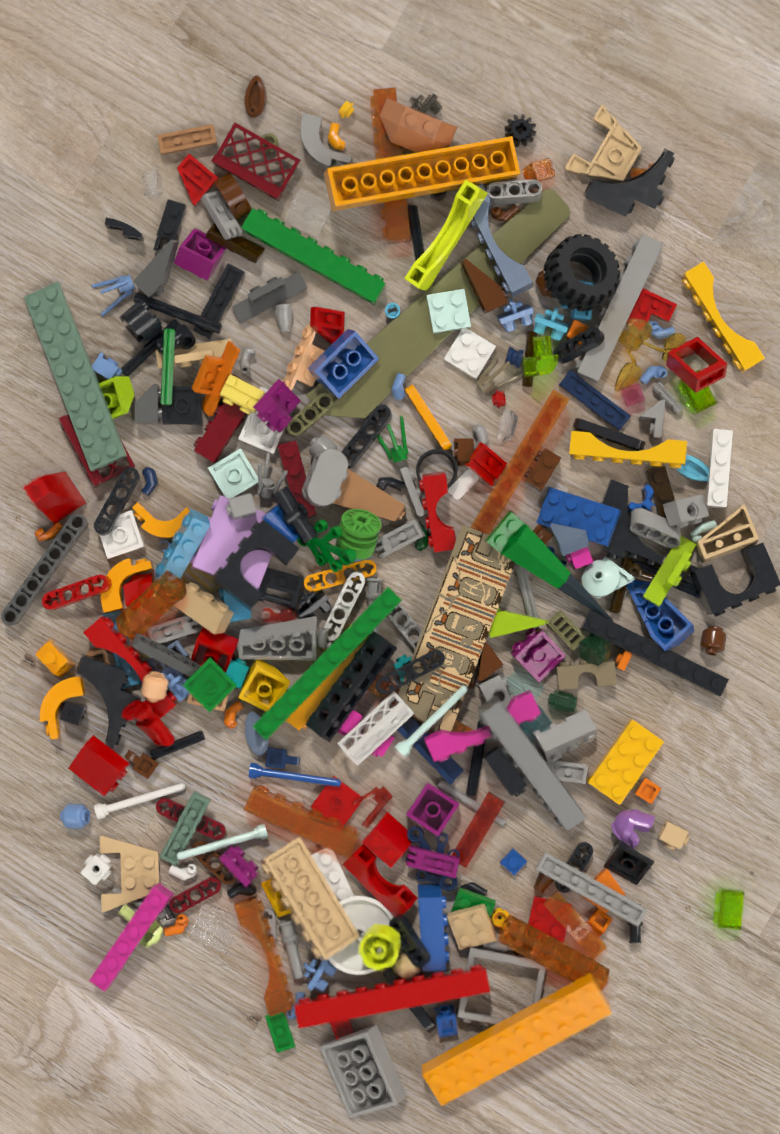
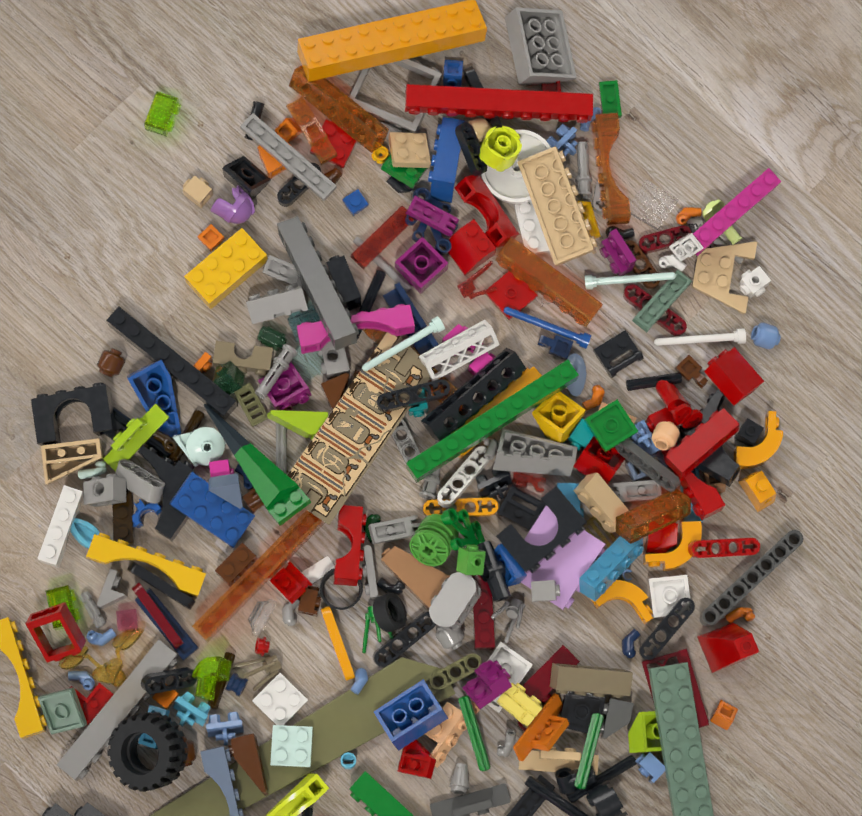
camera: 170 degrees left, 10 degrees down
(46, 434) = (724, 715): none -> orange slope
(117, 686) = (702, 443): none -> red brick
(172, 887) = (686, 247): none -> white slope
(179, 434) = (591, 680): none -> dark tan brick
(223, 769) = (615, 348): none -> black plate
(234, 474) = (544, 630): light aqua plate -> none
(279, 361) = (474, 733): none -> green axle
(318, 517) = (470, 560): none -> bright green brick
(377, 460) = (382, 615): none -> black tyre
(544, 675) = (282, 365): none -> light grey pin
(605, 404) = (157, 615): none -> dark red beam
(670, 295) = (62, 710): none -> sand green plate

